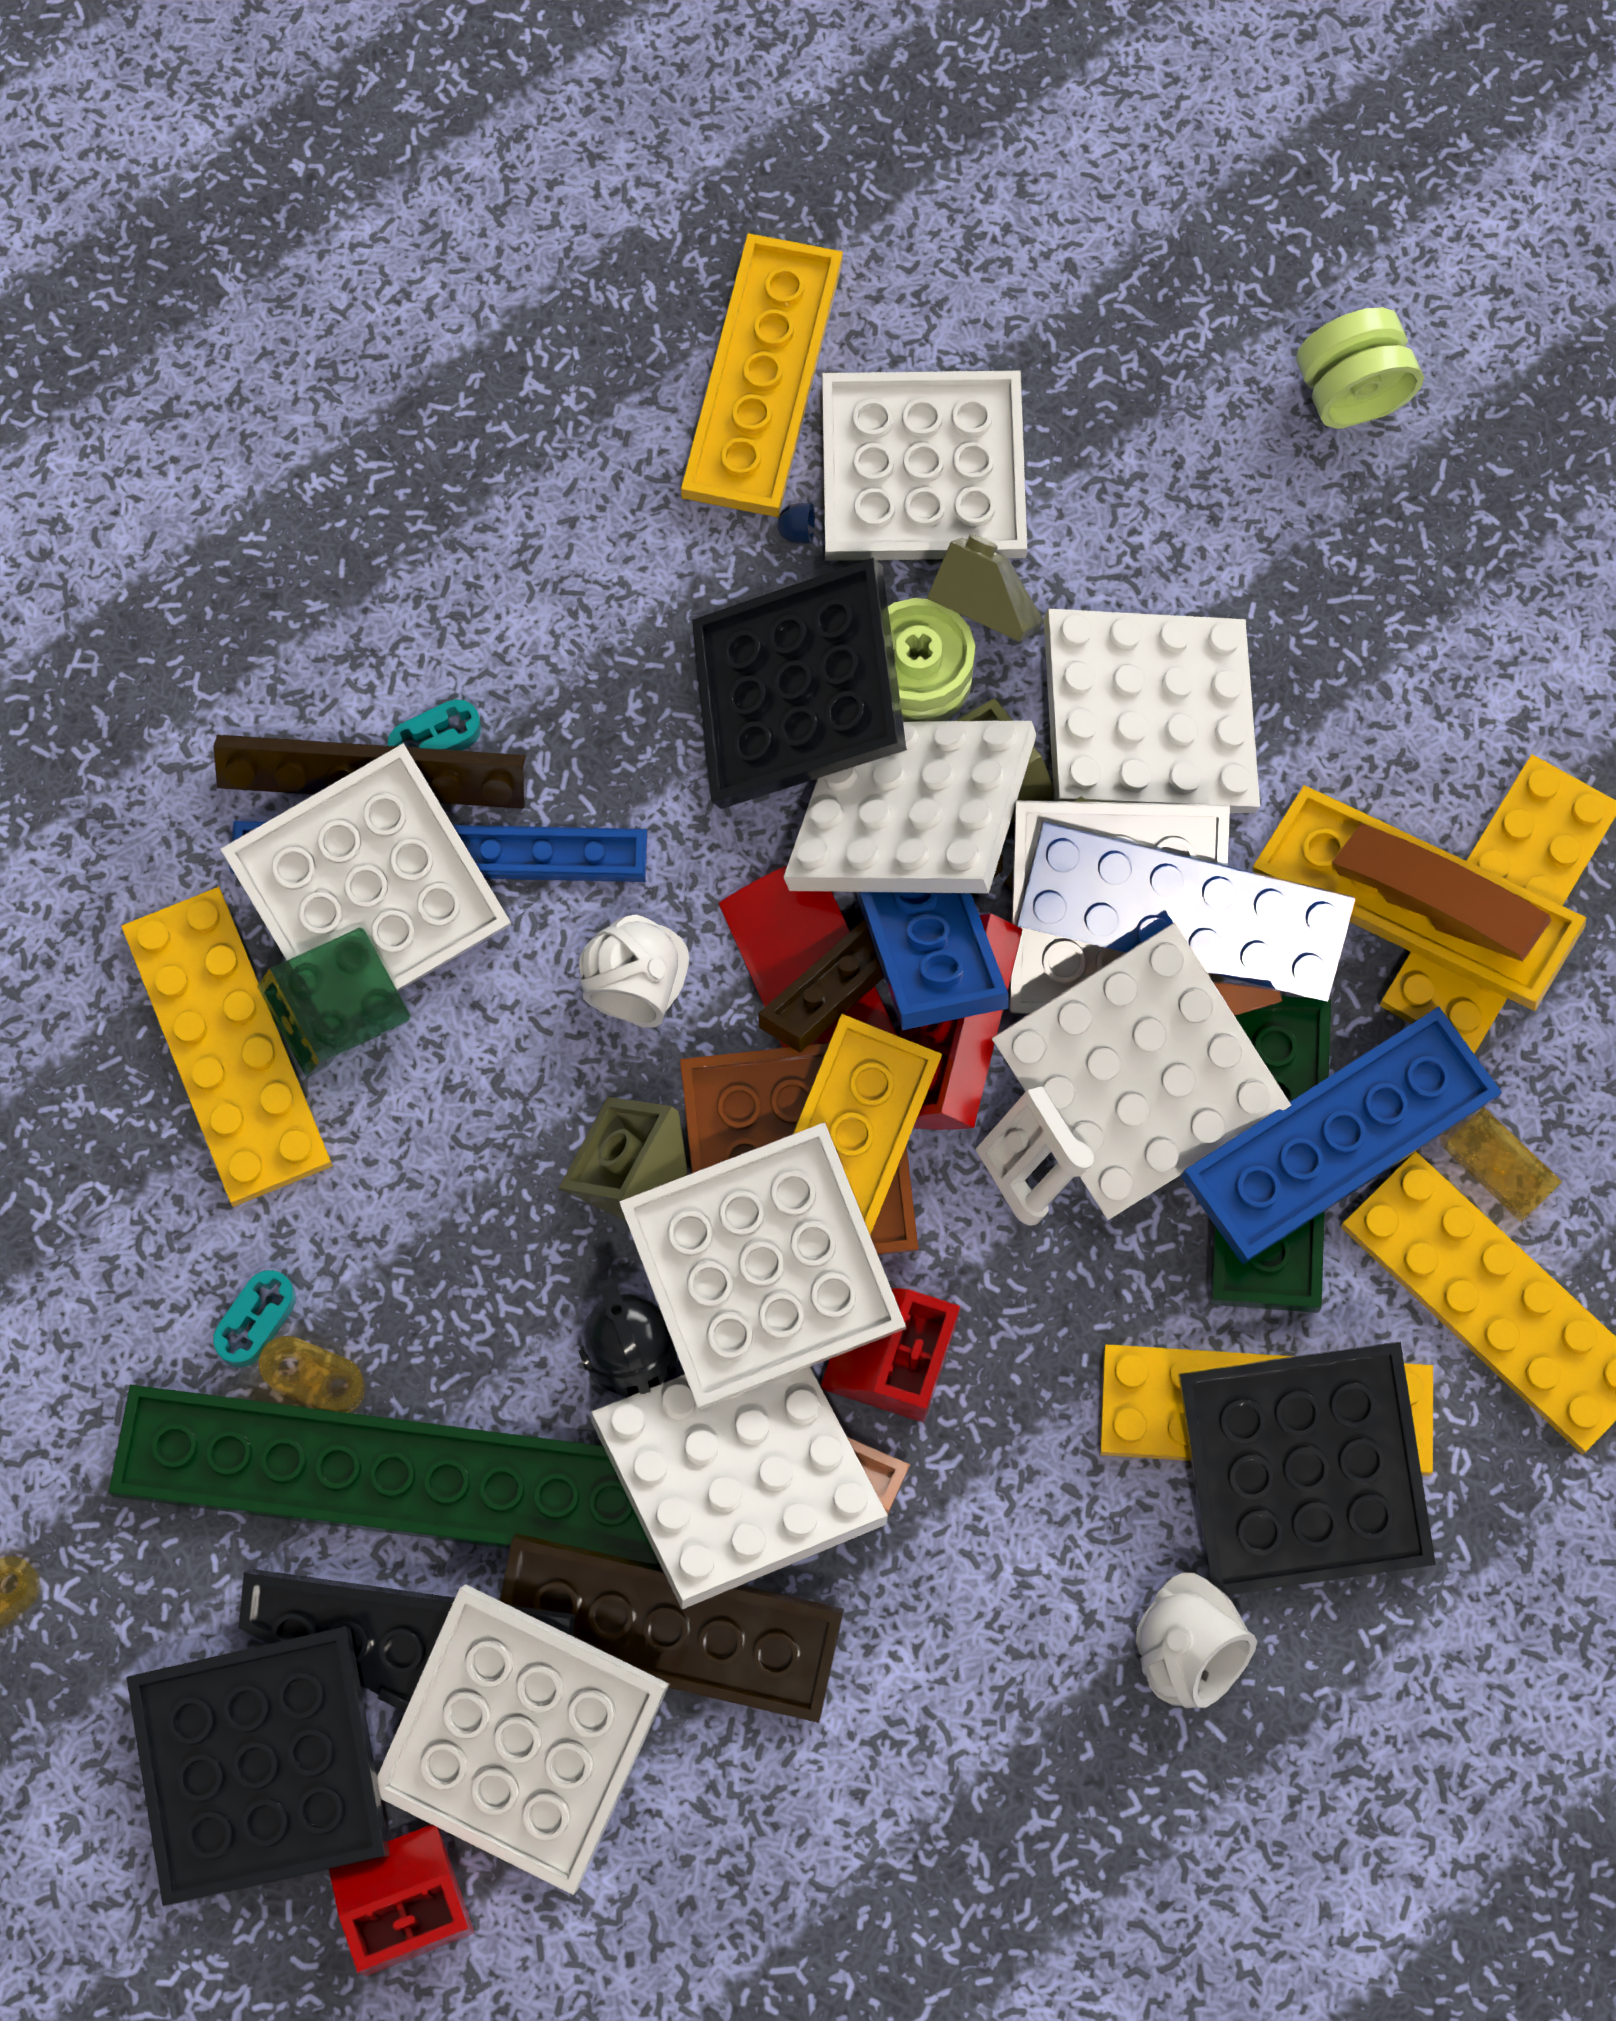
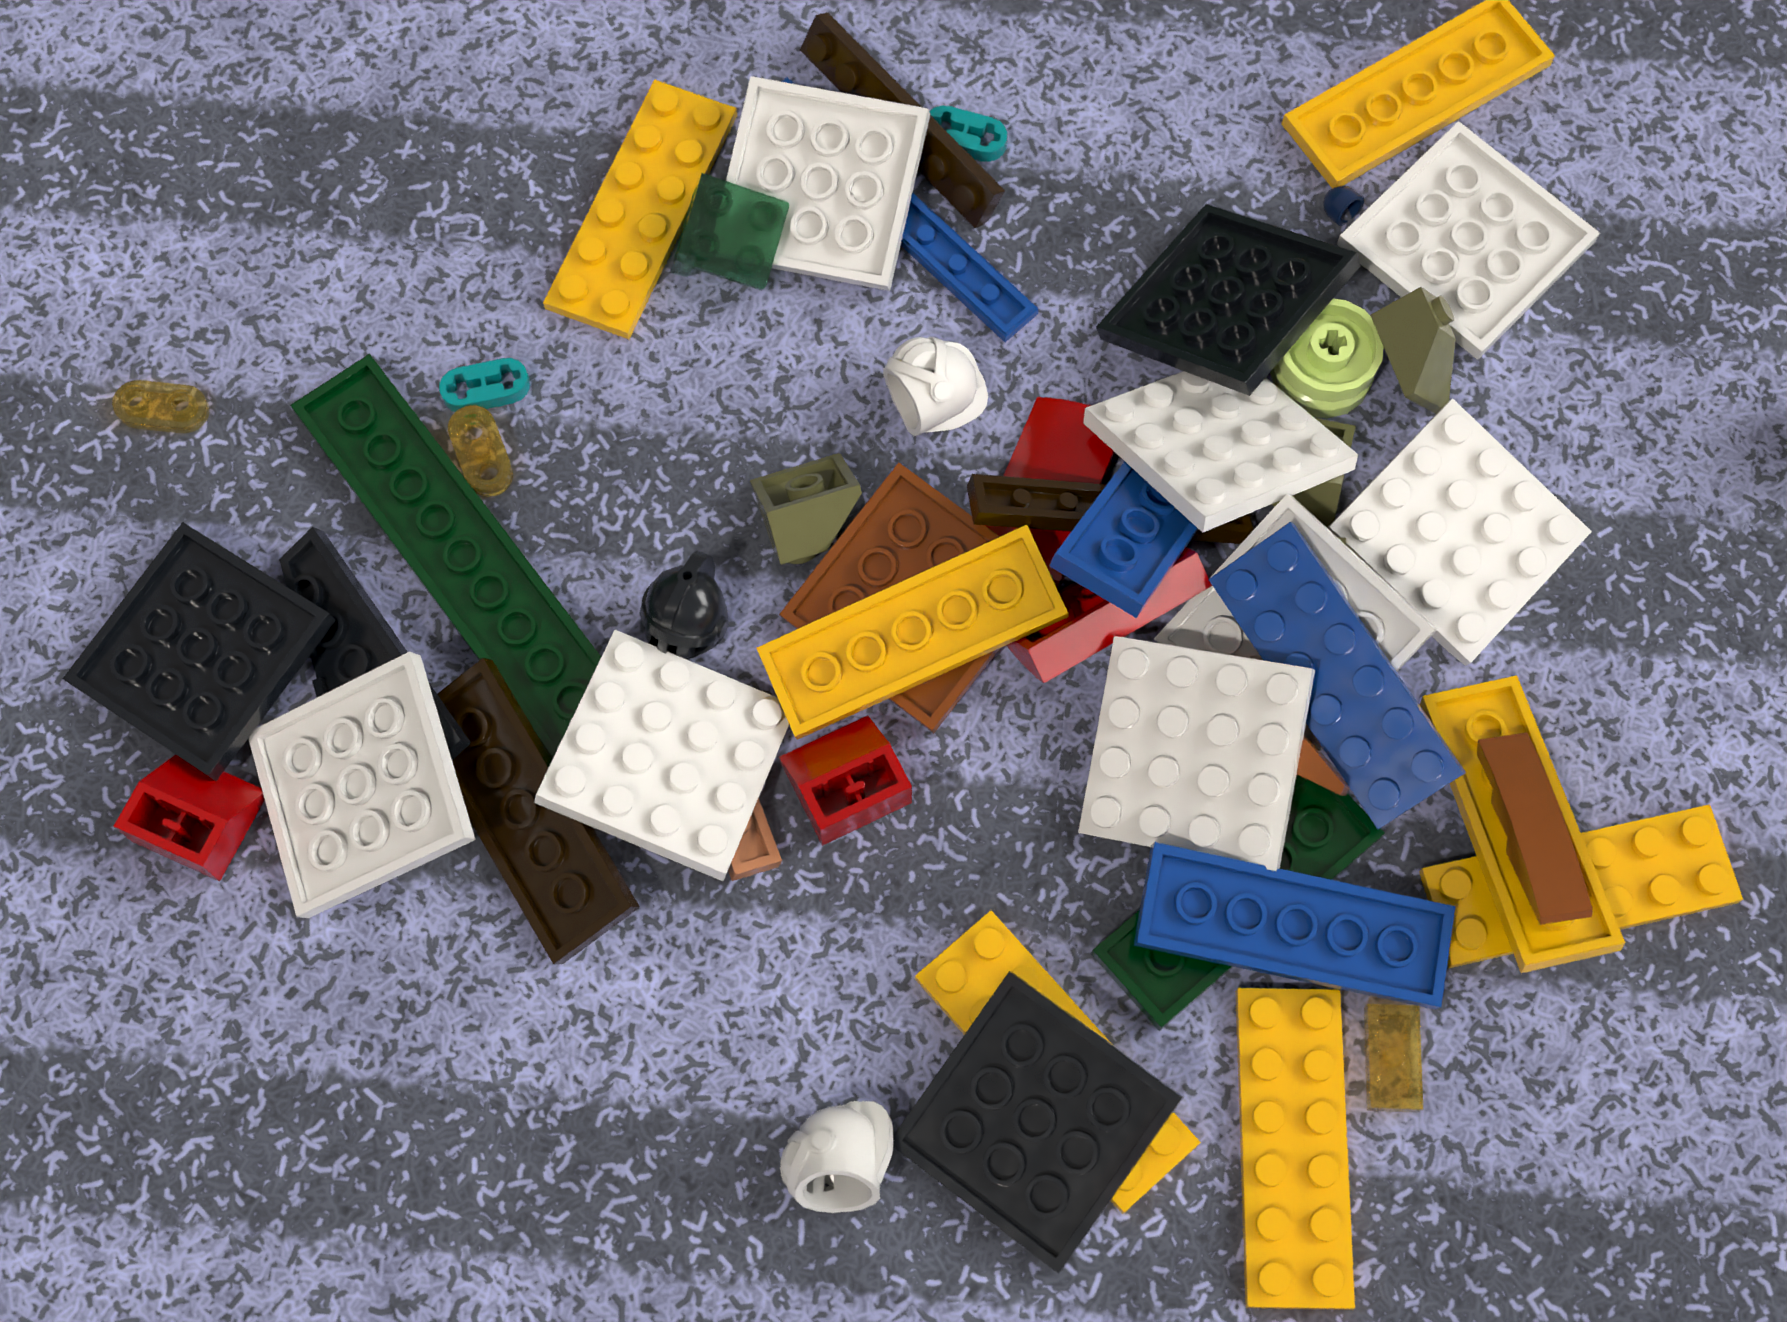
camera: 45 degrees right, 0 degrees up
(762, 1265) = (809, 637): white plate -> none
(1021, 1144) = (1066, 725): white plate -> none

